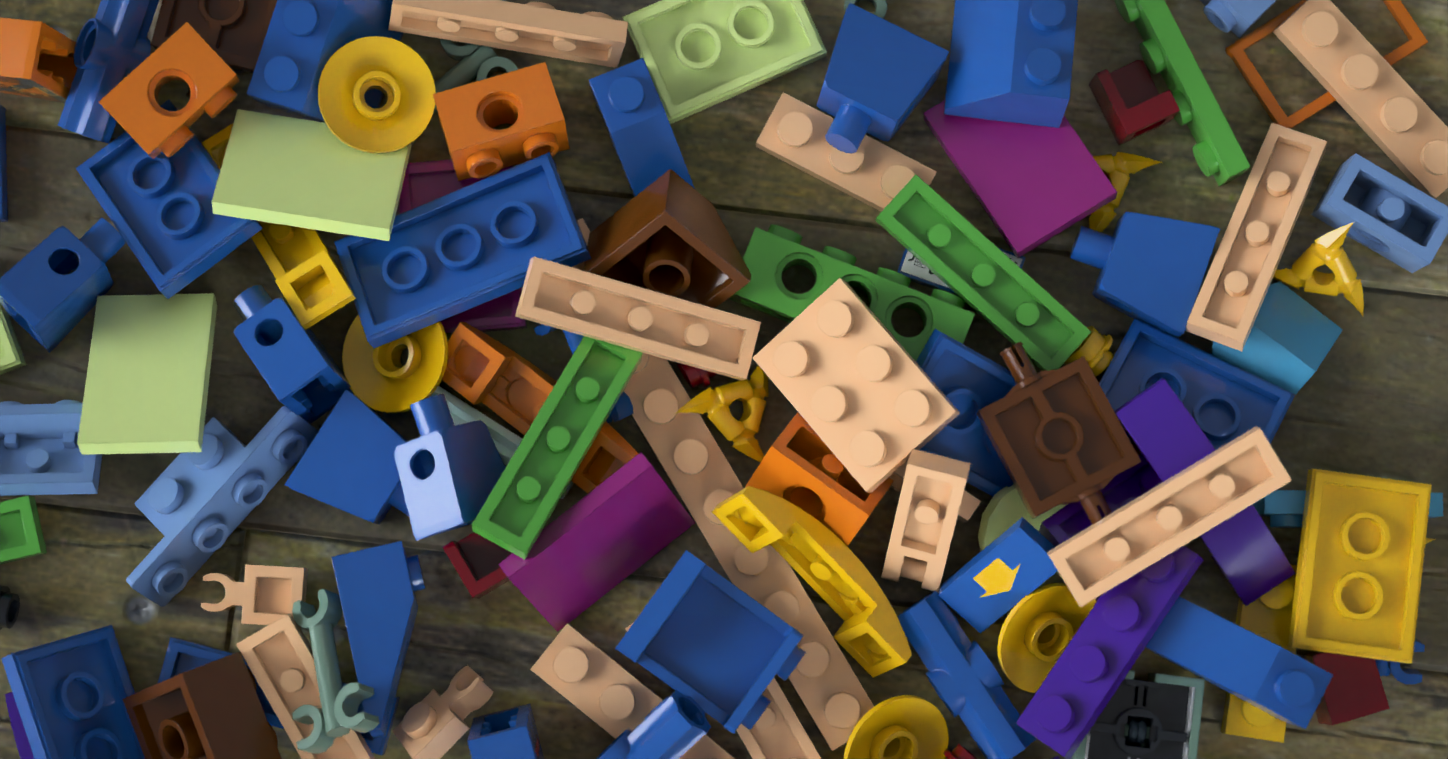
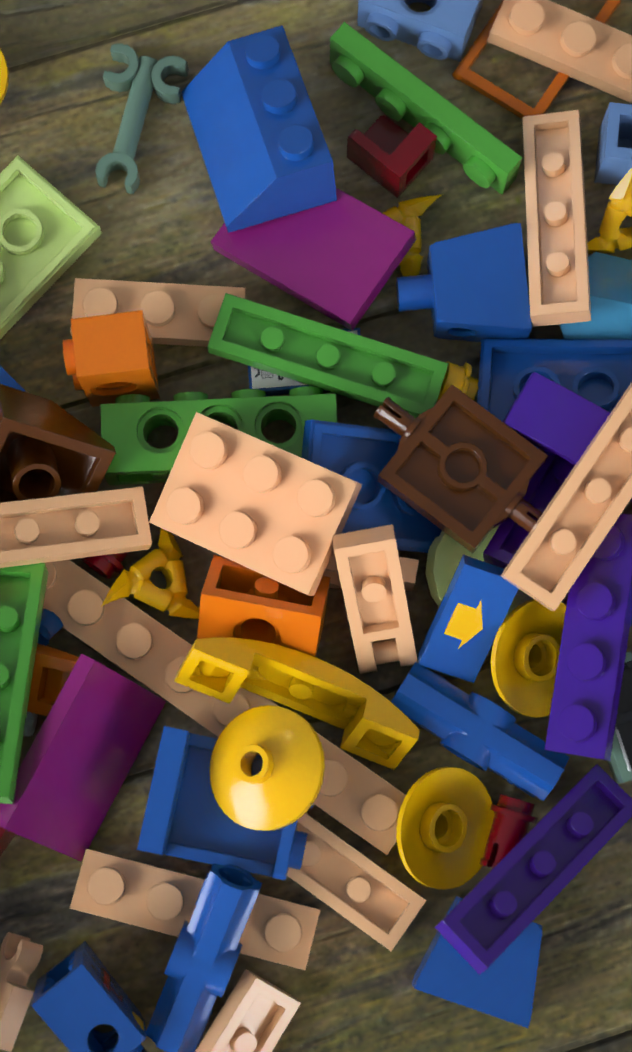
camera: 25 degrees left, 5 degrees down
(779, 643) = (289, 773): none -> yellow dish
(784, 189) = (111, 357): none -> orange brick
(875, 78) = (152, 227): blue torso -> none

